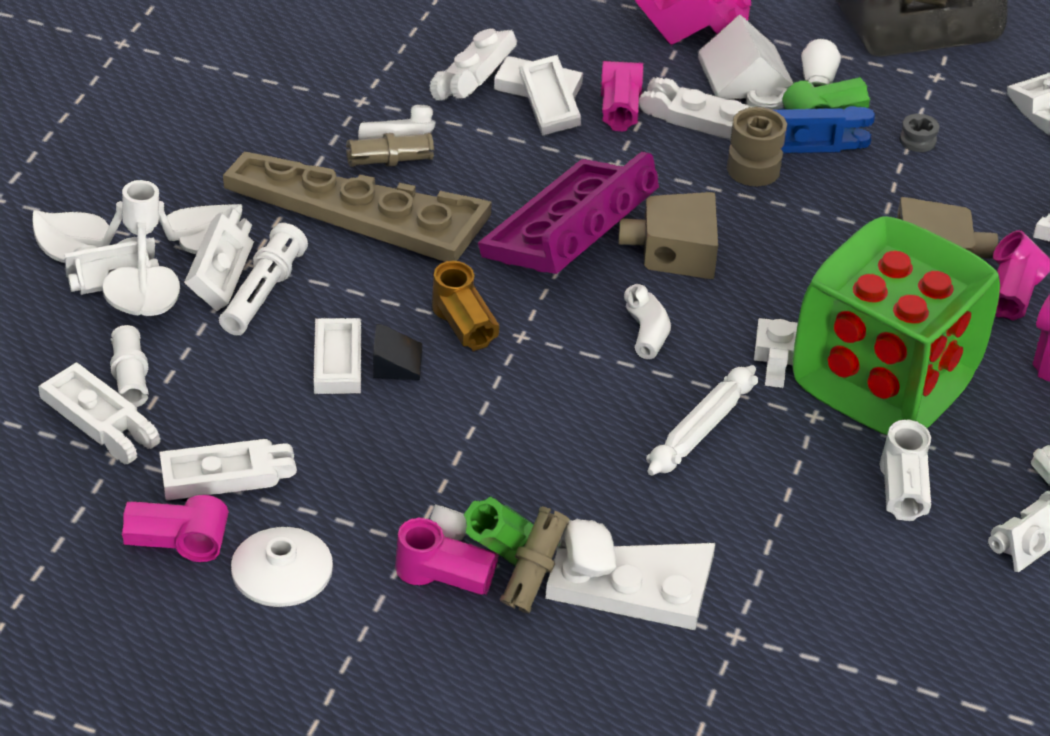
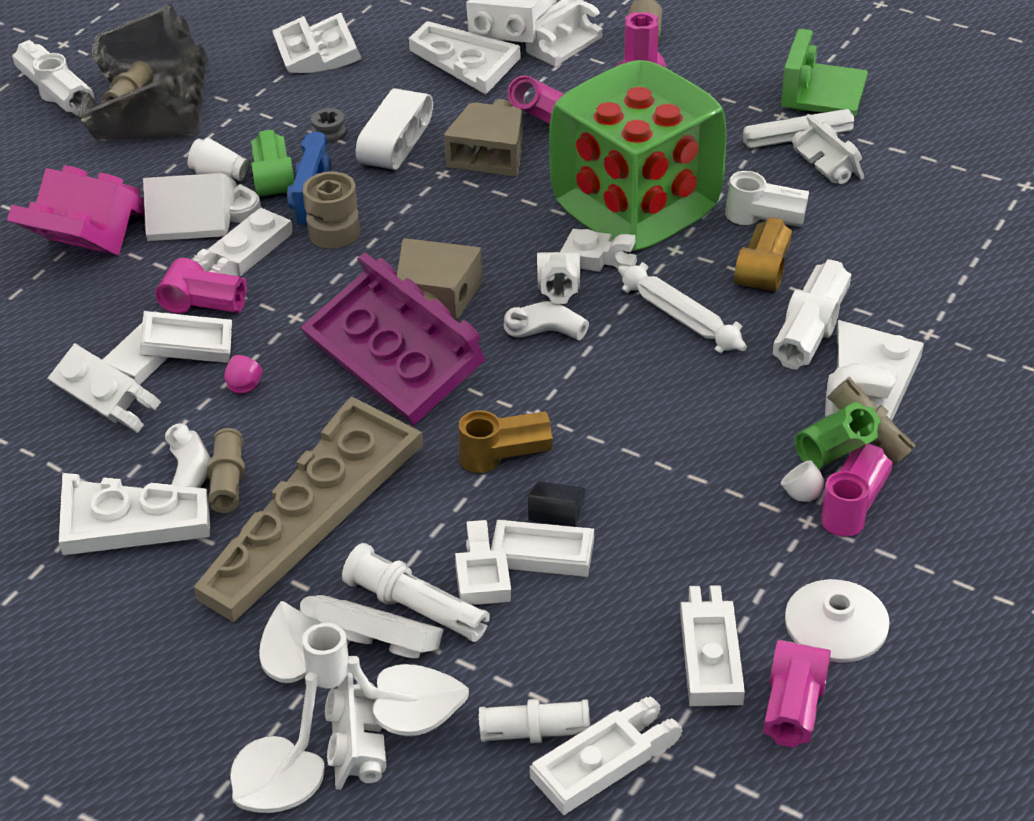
camera: 75 degrees left, 0 degrees up
(293, 314) = (481, 571): none -> white plate
(326, 105) = (124, 516): none -> white wing
(512, 138) = (242, 374): none -> dark pink hinge
(711, 313) = (558, 275): none -> white piece
(717, 518) = (812, 314): none -> white piece
(790, 474) = (764, 259): none -> pearl gold piece
(925, 174) = (394, 129): none -> white beam

